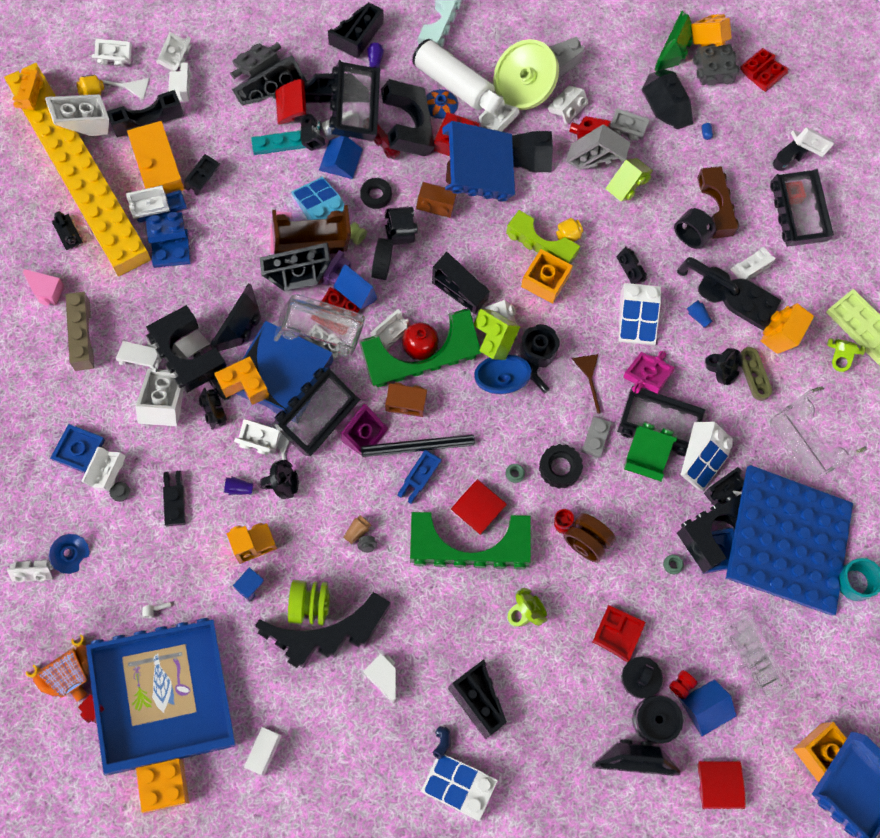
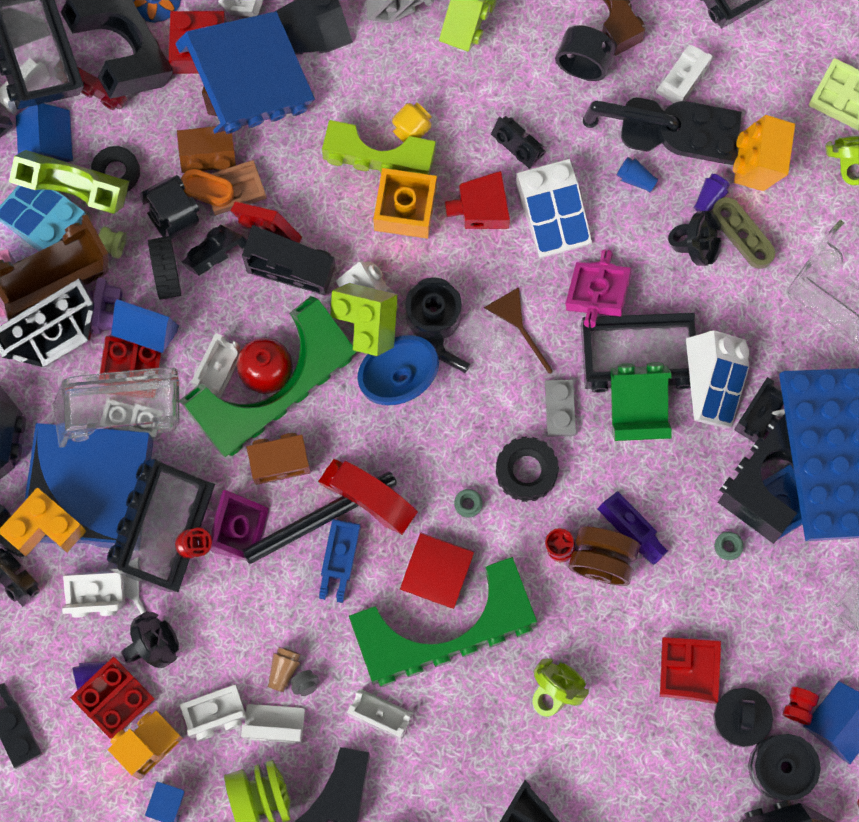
camera: 15 degrees left, 5 degrees up
(243, 505) = (112, 698): none -> red slope
(302, 540) = (214, 712): none -> white bracket
(328, 430) = (188, 546): none -> red wheel
(336, 179) = (47, 173): none -> lime arch
(337, 562) = (273, 724): none -> white panel
(406, 582) = (380, 714): none -> white hinge
(415, 260) = (212, 249): none -> black wing
(428, 222) = (207, 187): none -> orange tile
(444, 229) = (245, 183): none -> nougat plate
(455, 442) = (369, 494): none -> red arch
(456, 252) = (265, 219): none -> red wing
(594, 294) = (481, 203): none -> red torso
(612, 519) = (634, 525): none -> dark purple hinge
(745, 339) = (712, 190): none -> dark purple cone

